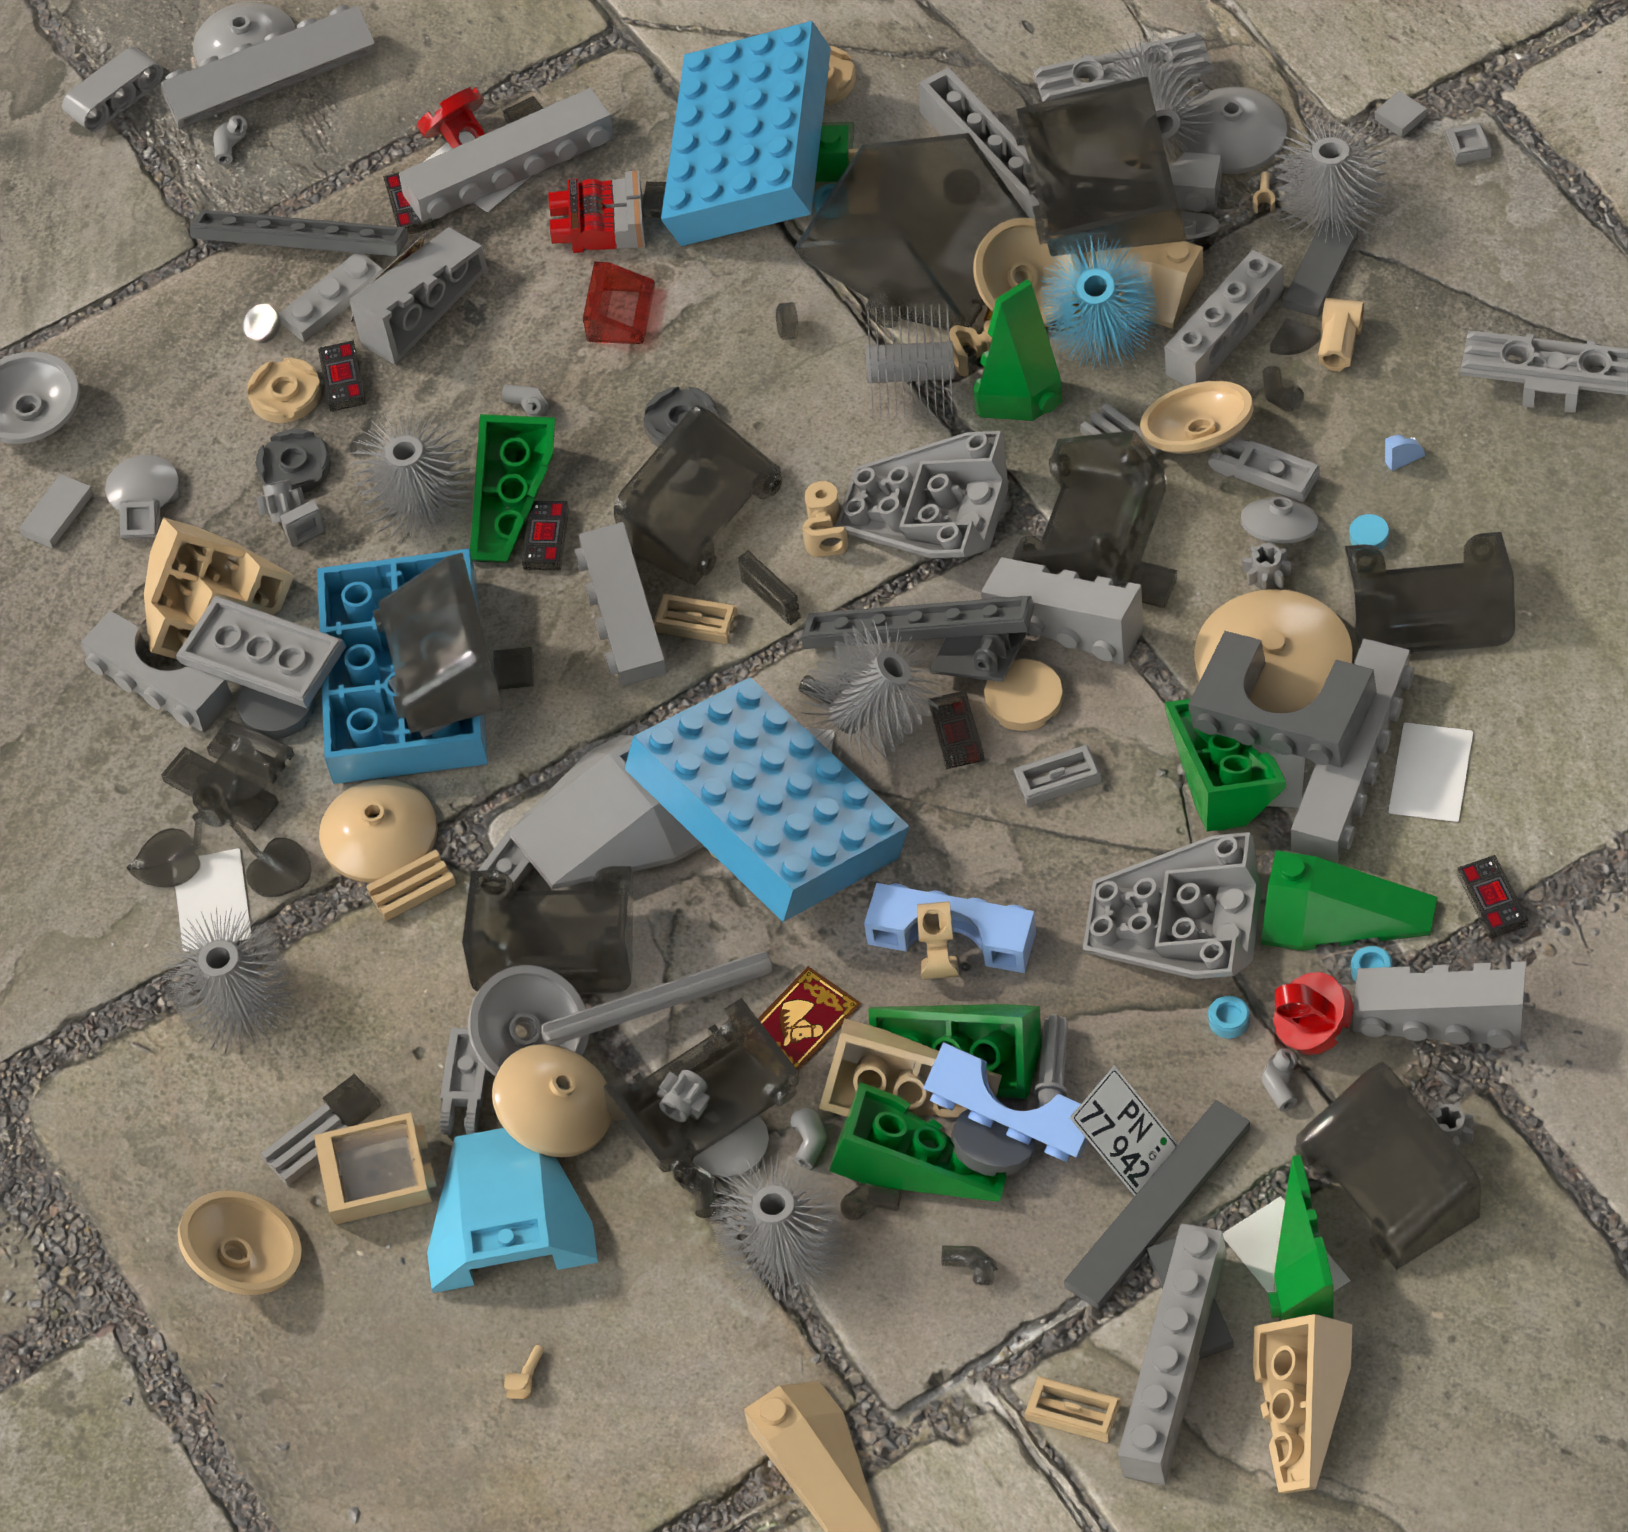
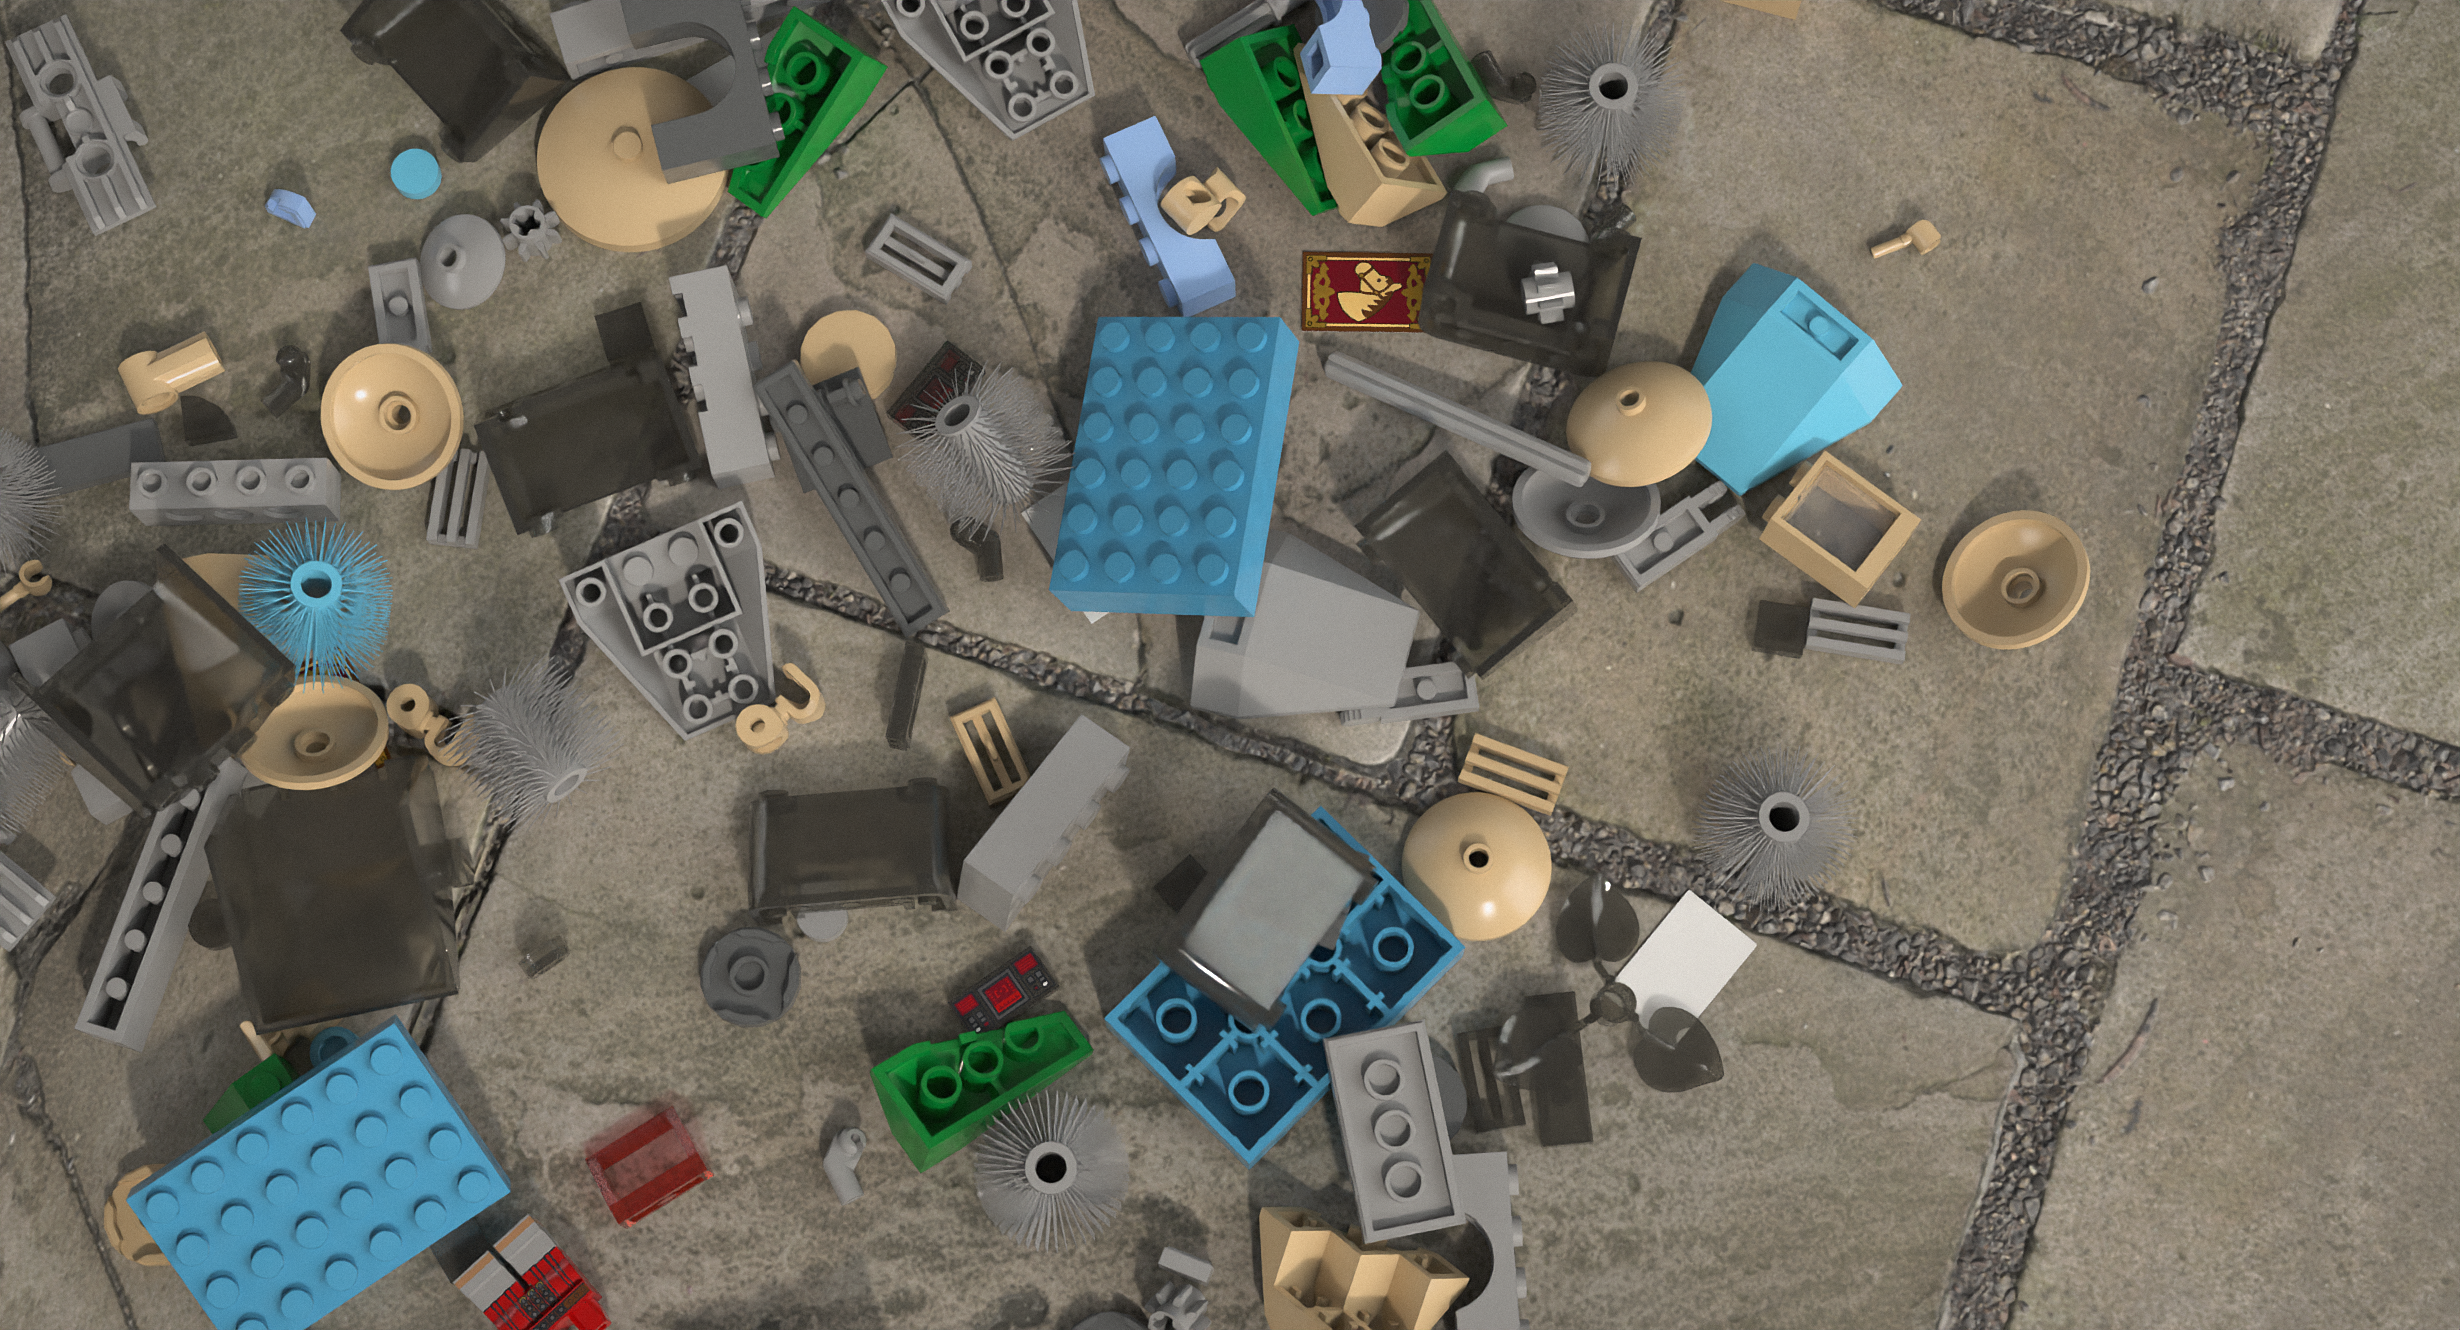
camera: 135 degrees left, 20 degrees up
(1020, 365) = (457, 627): green wedge -> none

